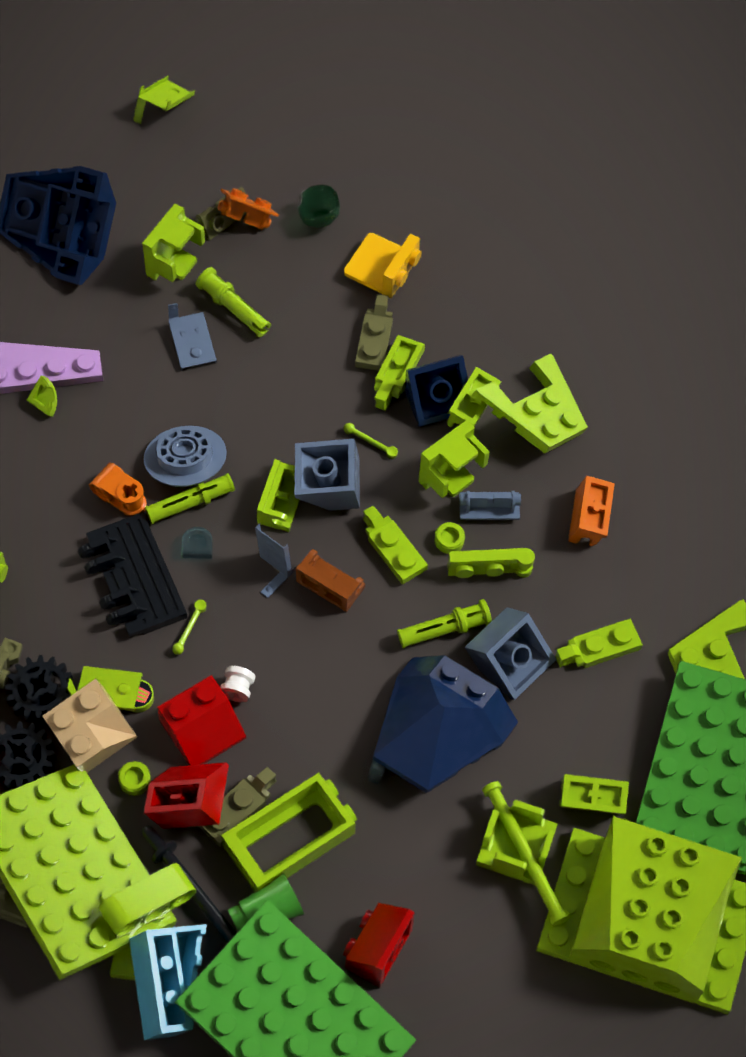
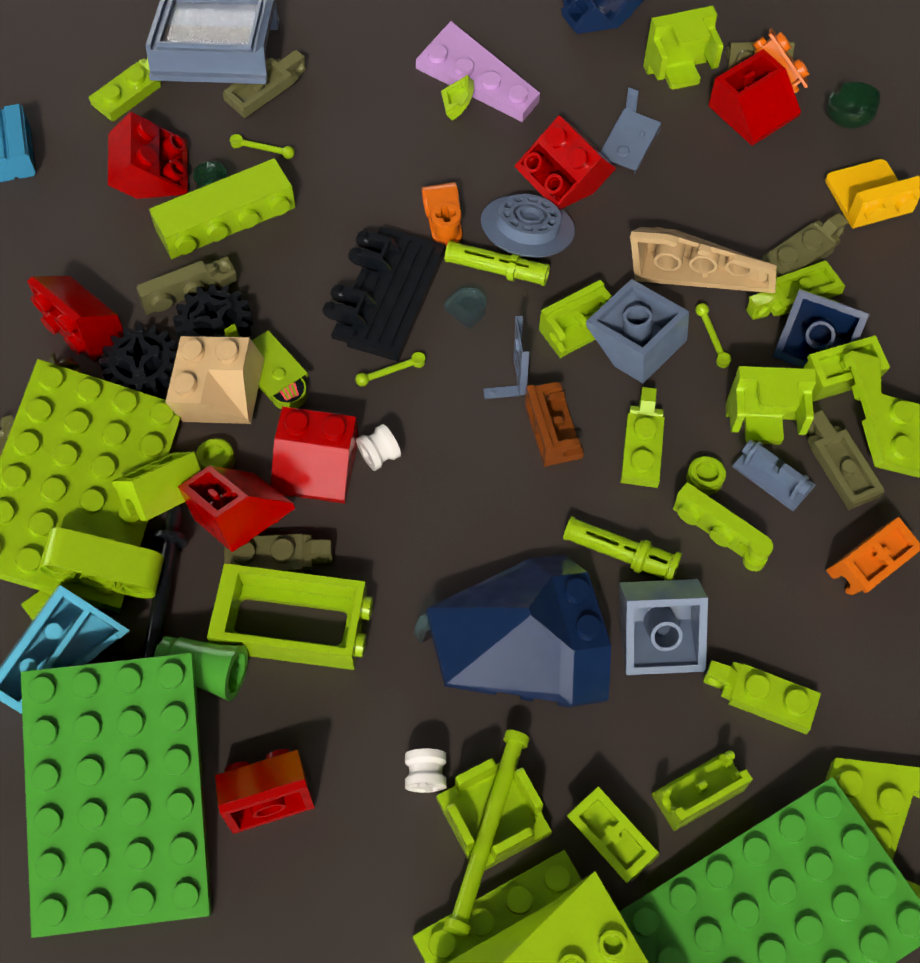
camera: 45 degrees right, 0 degrees up
(125, 822) = (155, 486): none -> lime hinge
(169, 394) = (564, 165): none -> red slope
(224, 294) = (694, 122): lime pin -> none
(252, 248) = (755, 97): none -> red slope
(313, 402) = (686, 260): none -> tan wedge
(457, 852) = (425, 770): none -> white wheel
(523, 465) = (843, 463): none -> olive hinge
(615, 729) = (701, 790): none -> lime hinge

